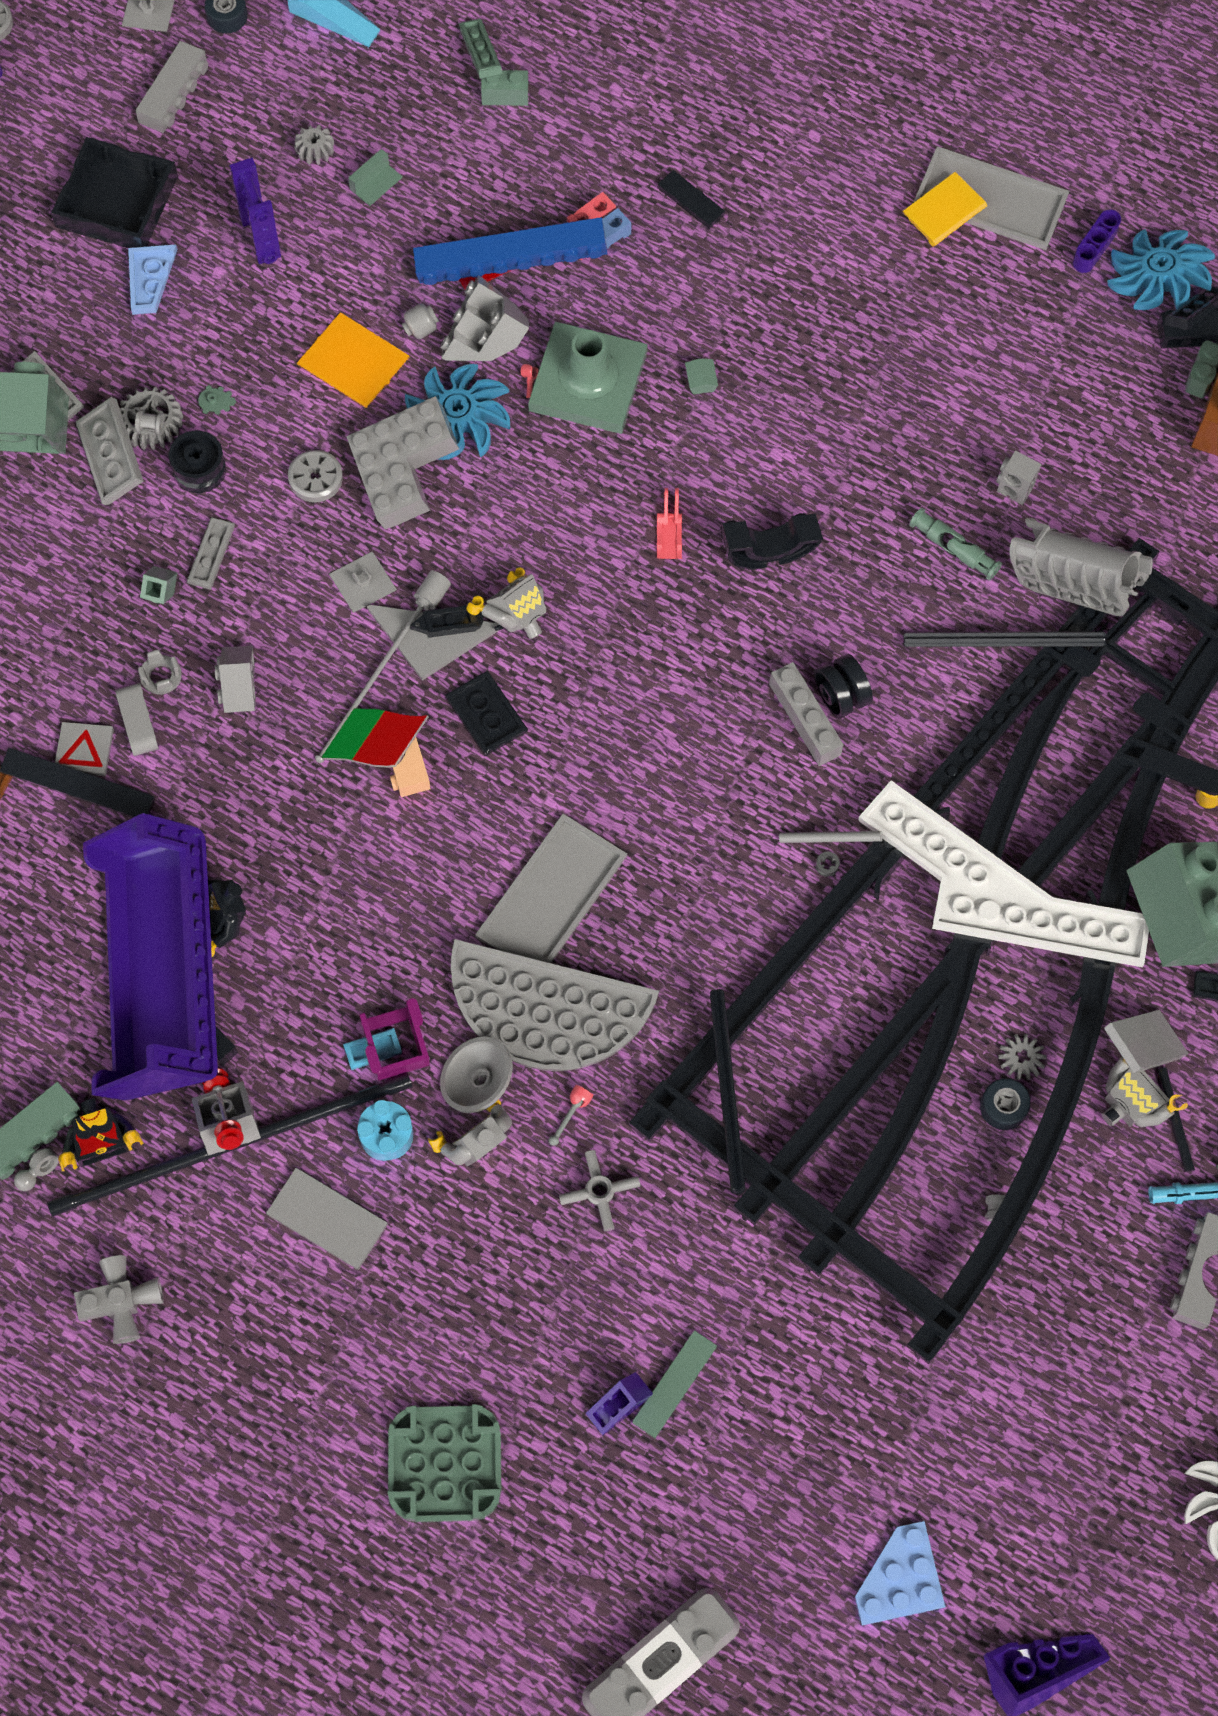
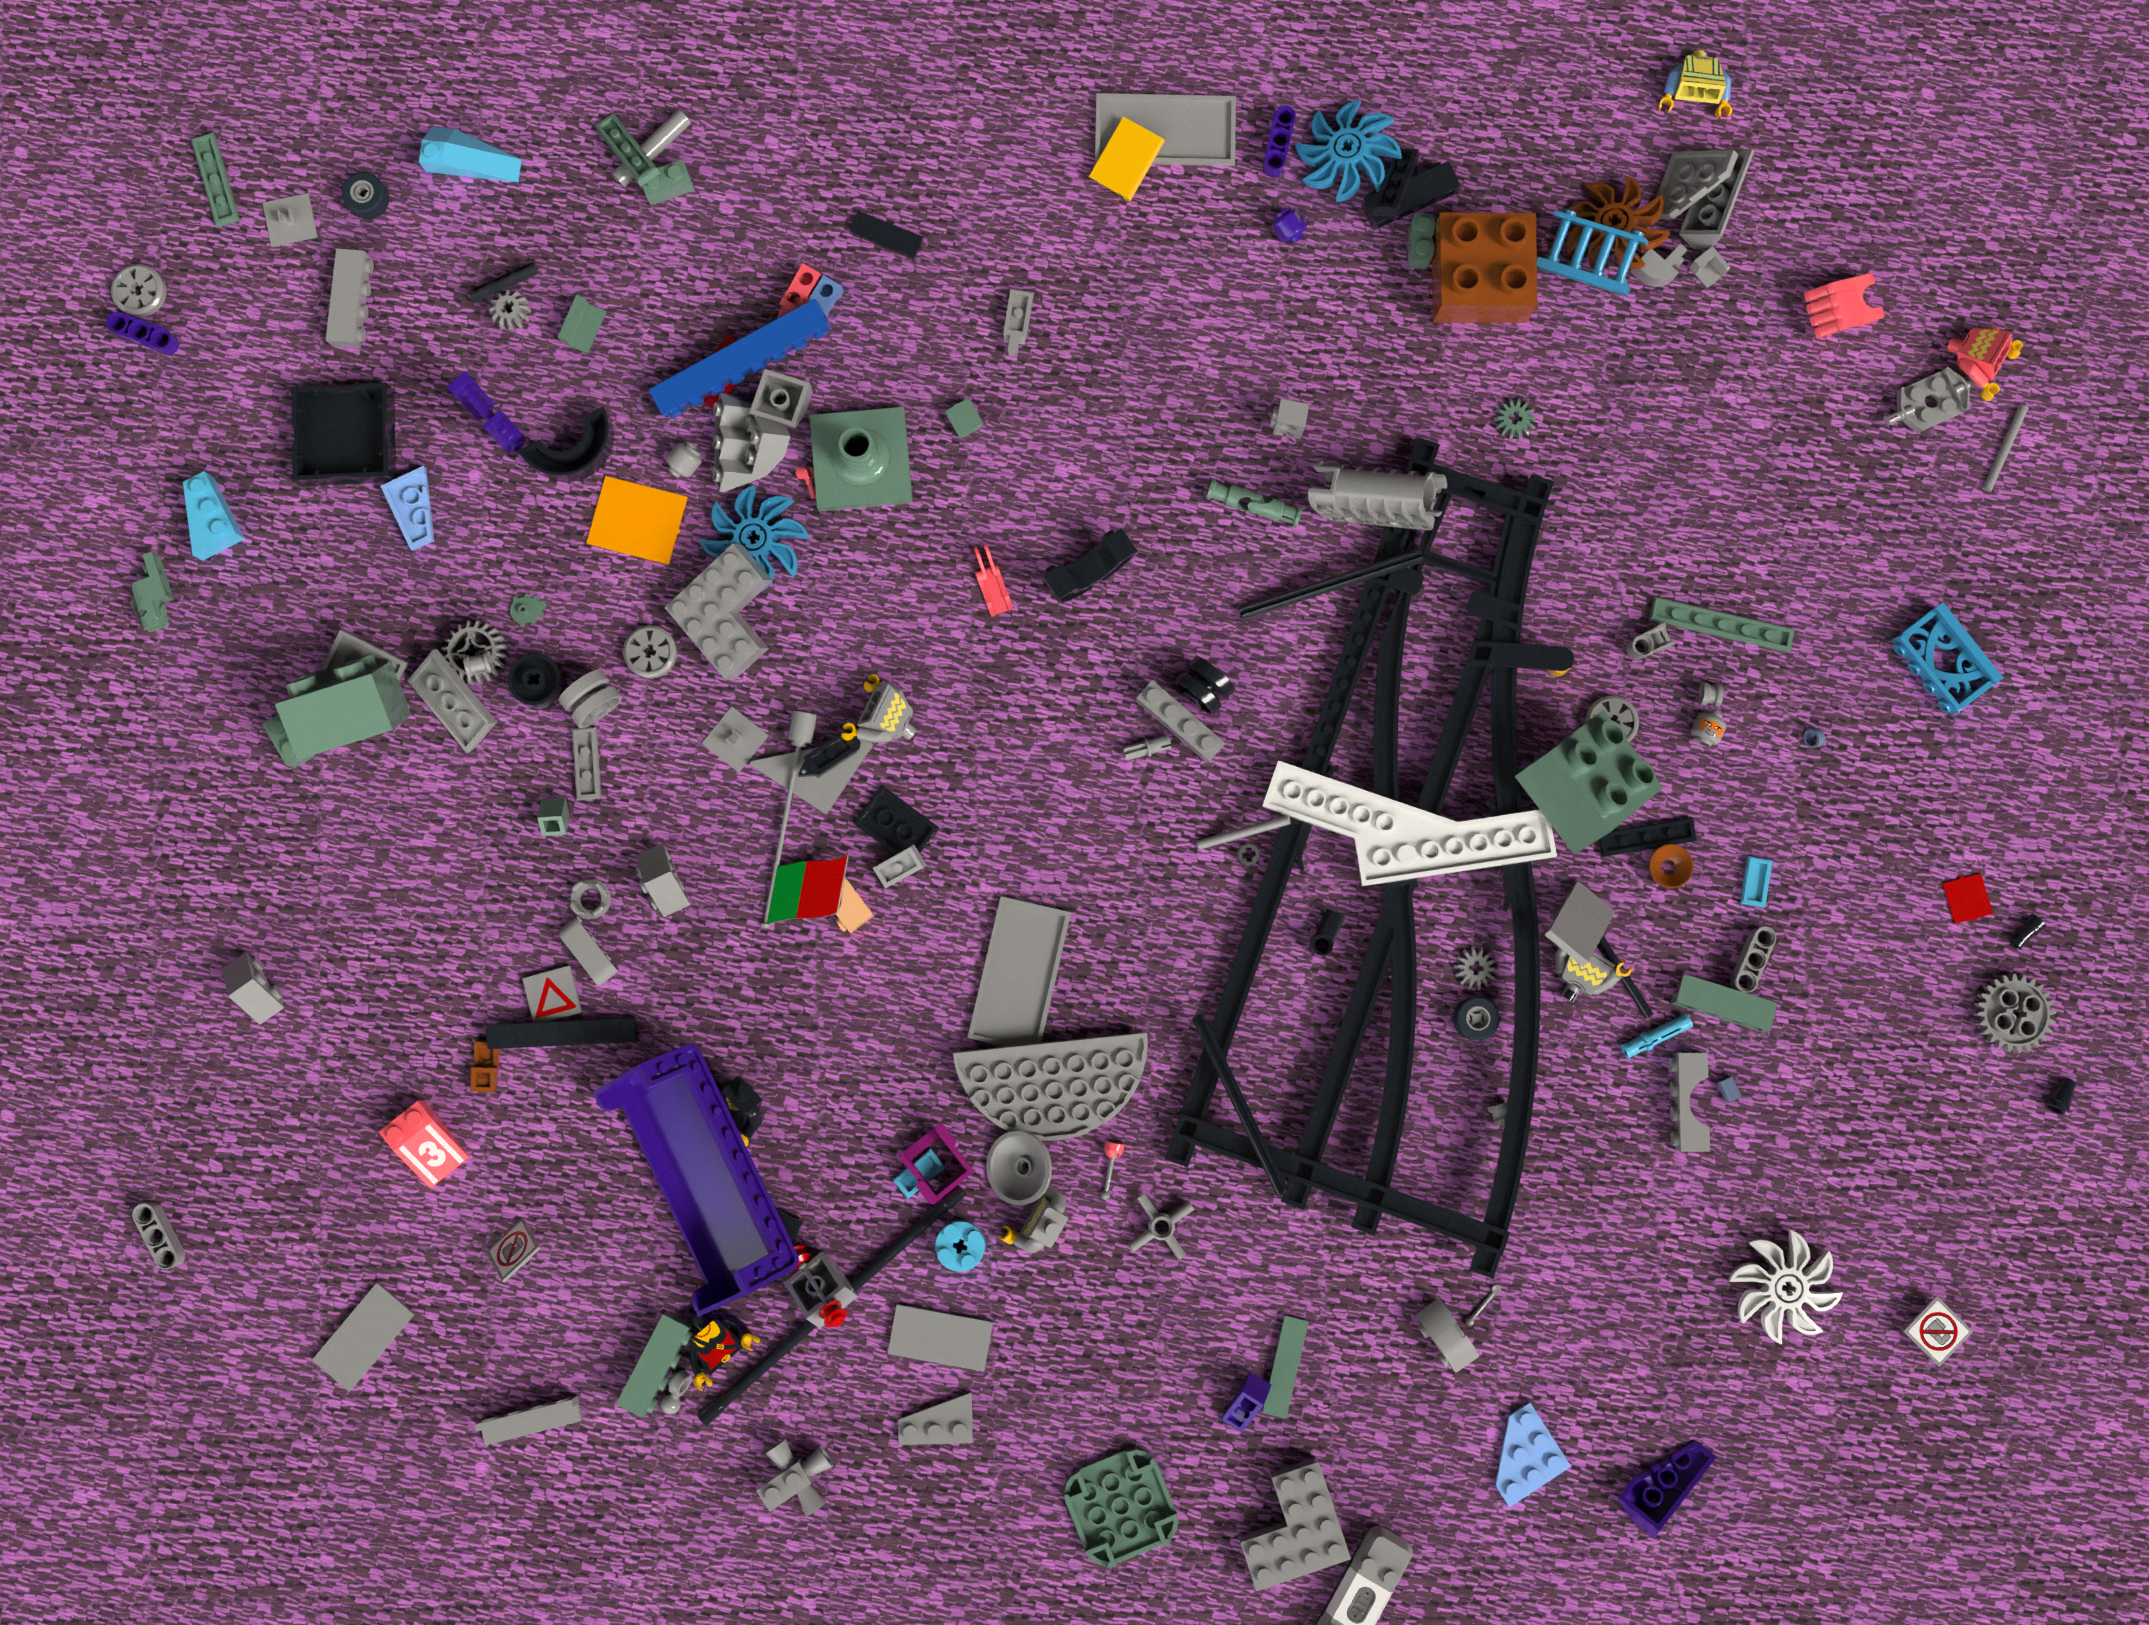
camera: 20 degrees left, 15 degrees up
(240, 491) = (590, 698): none -> light grey wheel
(290, 1305) = (939, 1424): none -> light grey wing
(322, 119) = (504, 281): none -> black tile
(323, 287) = (582, 459): none -> black brick
(474, 748) = (899, 866): none -> light grey plate
(508, 55) = (656, 143): none -> light grey piece
(535, 296) = (781, 398): none -> light grey slope
(631, 1570) = (1307, 1537): none -> light grey piece
(763, 727) = (1147, 747): none -> light grey axle
(786, 309) = (1017, 319): none -> light grey hinge
(862, 1425) = (1447, 1336): none -> light grey brick
(879, 965) = (1327, 932): none -> black piece
(929, 1390) = (1495, 1290): none -> light grey hinge
(1080, 314) = (1289, 225): none -> dark purple head

